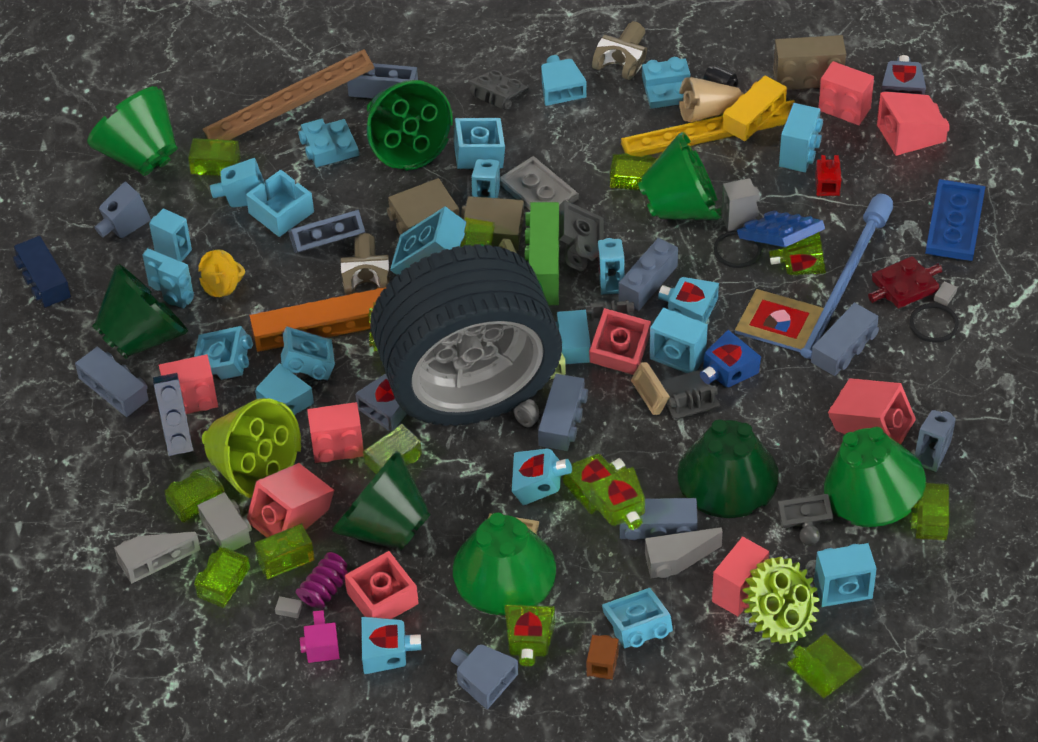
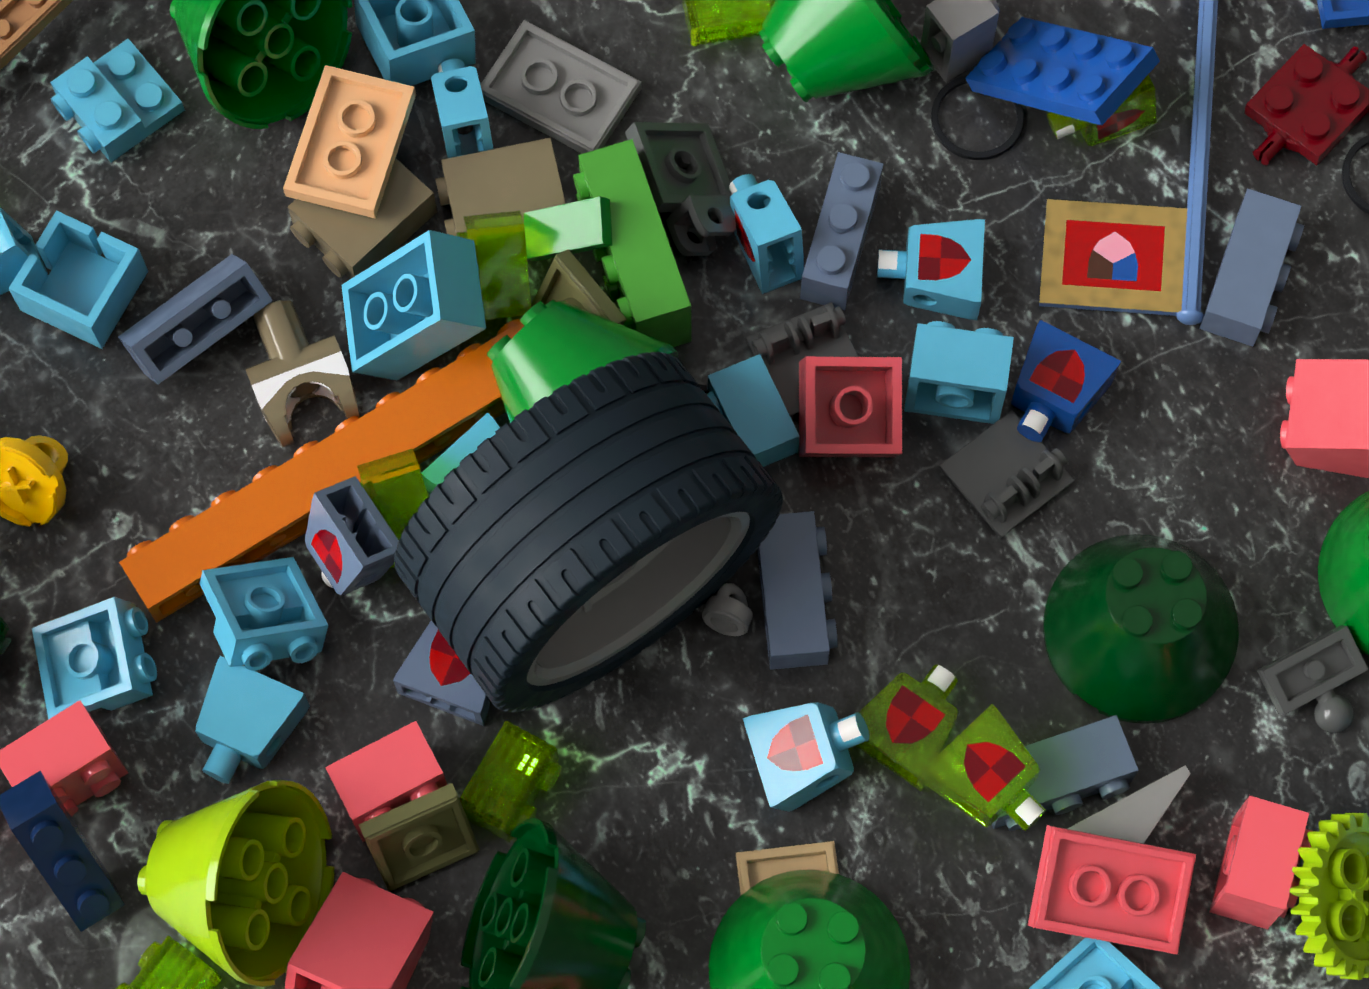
camera: 20 degrees left, 20 degrees up
(340, 457) = (419, 837): none -> olive tile
(356, 329) = (349, 537): none -> sand blue torso
(427, 176) = (349, 141): none -> light nougat plate
(517, 231) = (570, 226): none -> tile
(650, 388) = (936, 487): tan tile -> none
(662, 566) = (1112, 889): none -> coral tile

